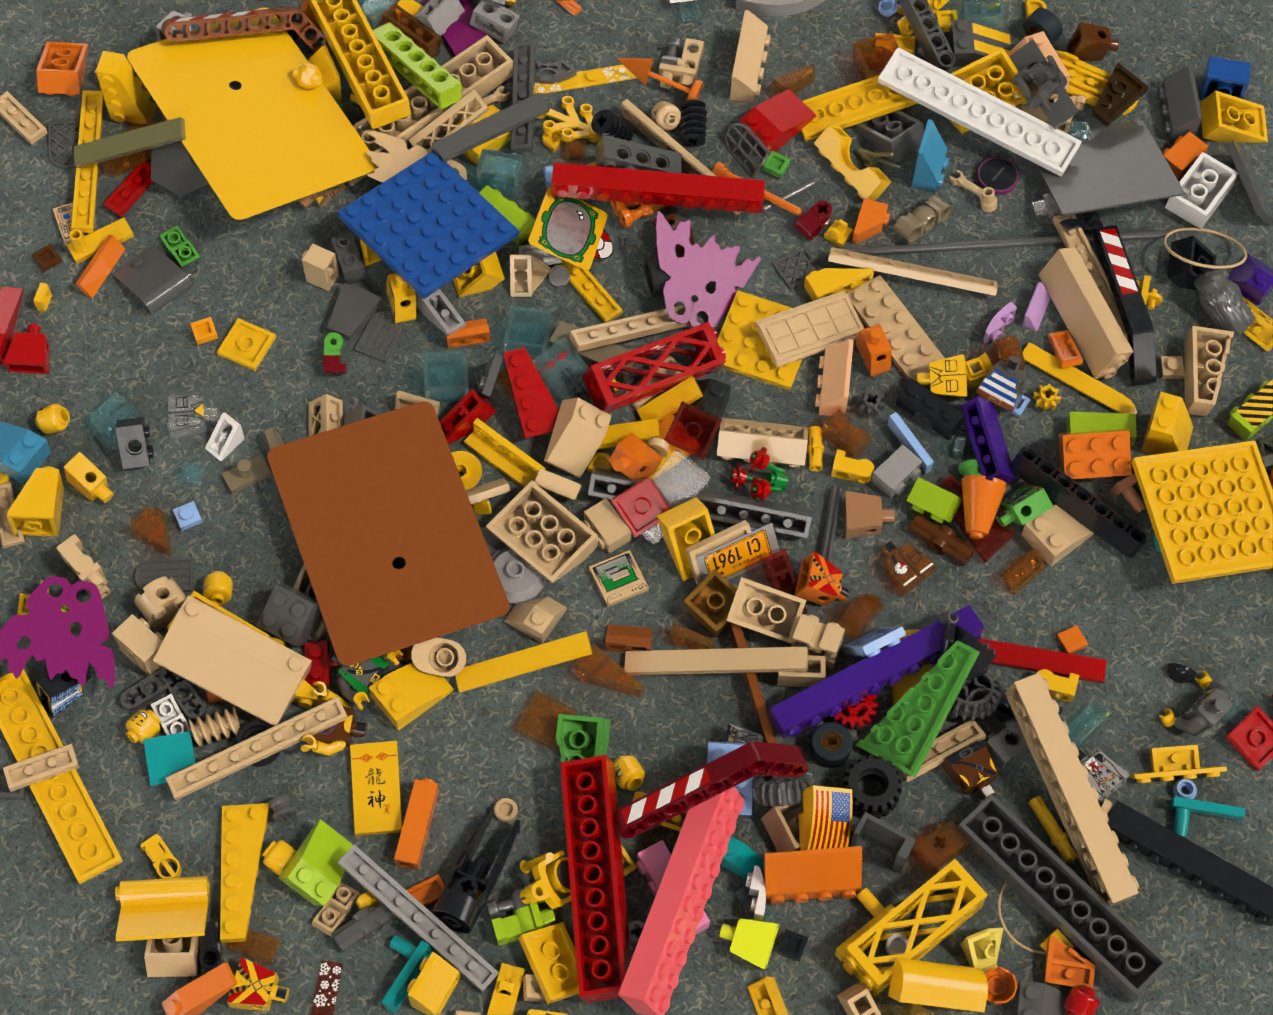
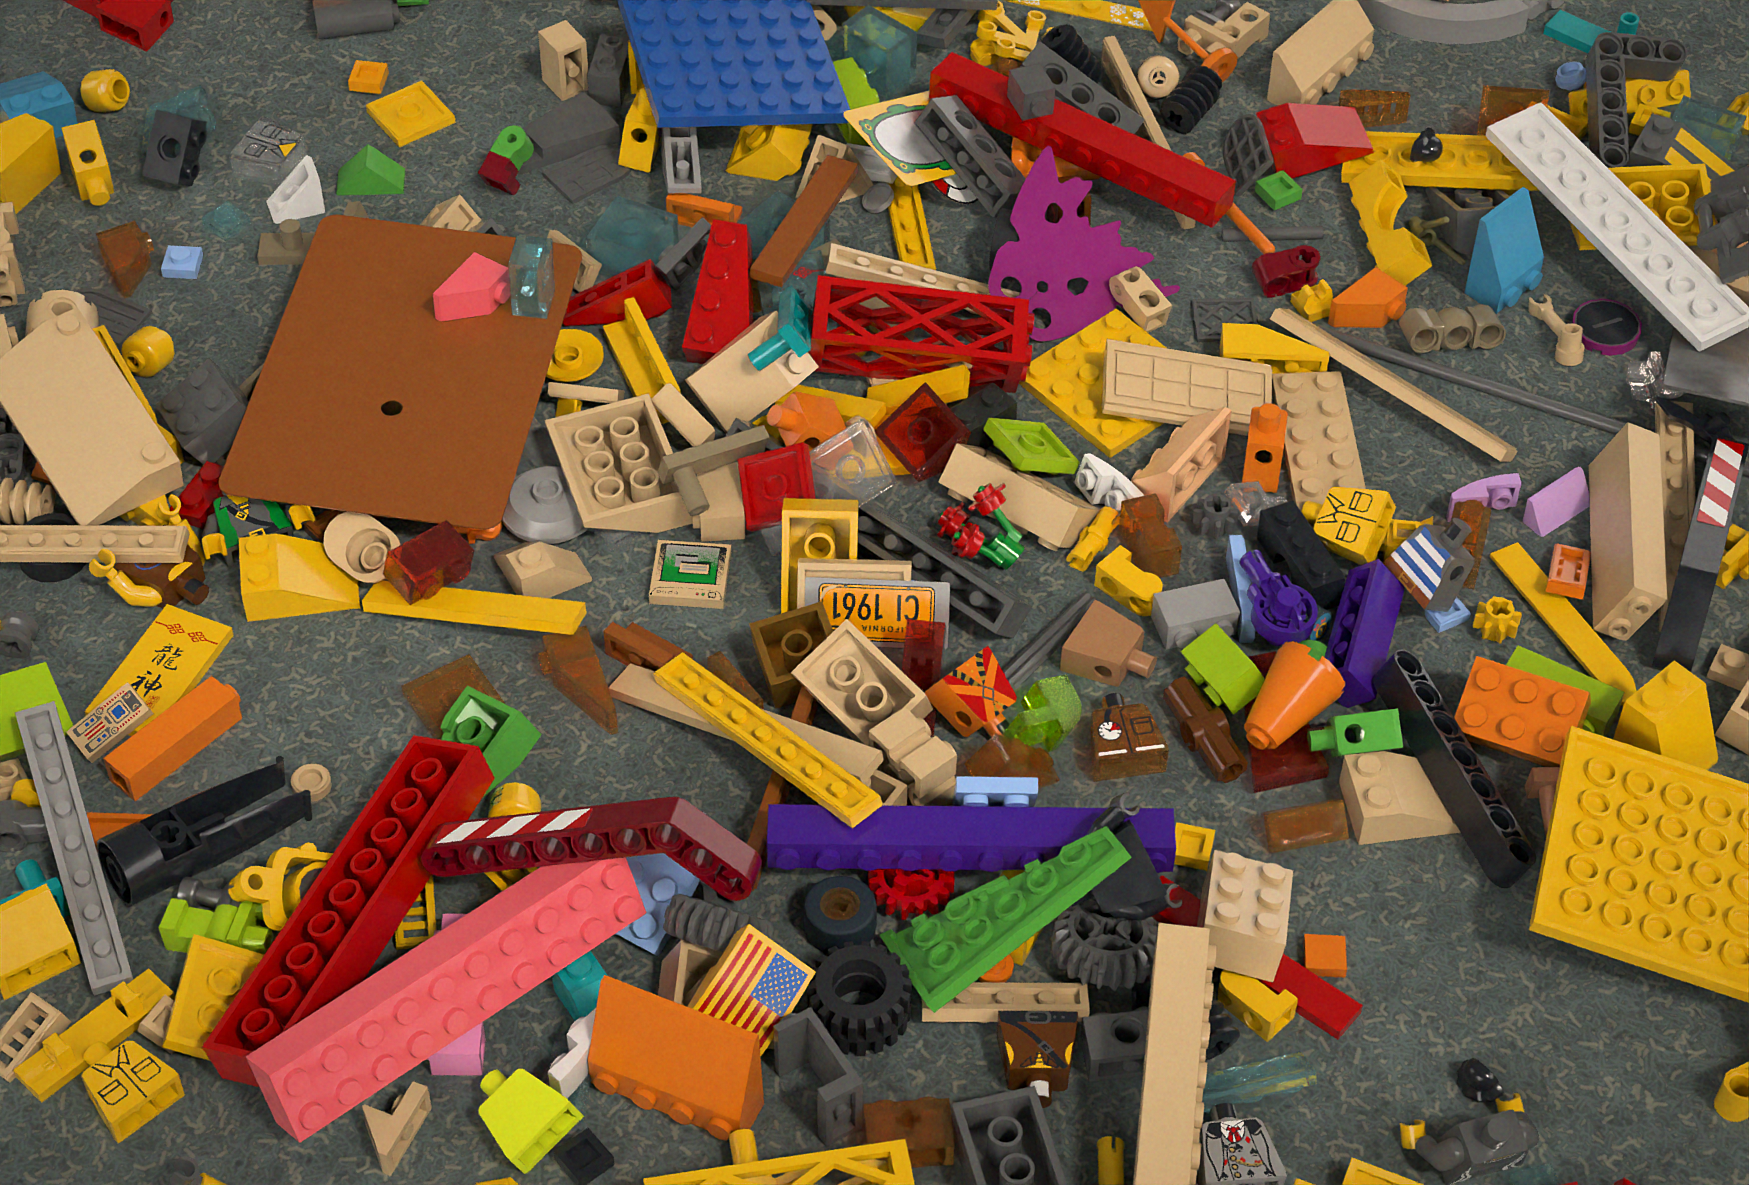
camera: 30 degrees right, 15 degrees down
(255, 401) = (370, 174): none -> bright green slope
(376, 833) = (109, 722): none -> tan tile
(395, 462) = (472, 289): none -> coral slope
(427, 440) = (531, 276): none -> clear light blue brick
(485, 650) = (428, 562): none -> clear red brick
(543, 321) = (804, 221): none -> dark orange tile
(589, 524) = (687, 463): none -> dark tan piece
(598, 407) = (793, 331): none -> teal piece
(604, 226) = (971, 153): none -> dark grey brick
(621, 174) = (1031, 91): none -> dark grey brick
(691, 986) = (395, 1131): none -> tan slope
(739, 667) = (768, 740): none -> yellow tile
(748, 278) = (1140, 298): none -> tan leg
(751, 408) = (1031, 446): none -> lime plate
(802, 411) = (1104, 483): none -> white slope
(845, 101) = (1426, 147): none -> black piece
(864, 570) = (1049, 713): none -> clear neon green brick
(885, 385) = (1250, 500): none -> clear bracket
(940, 447) = (1283, 599): none -> dark purple pin
(979, 608) = (1193, 846): none -> yellow plate
(1029, 642) = (1246, 913): none -> tan brick

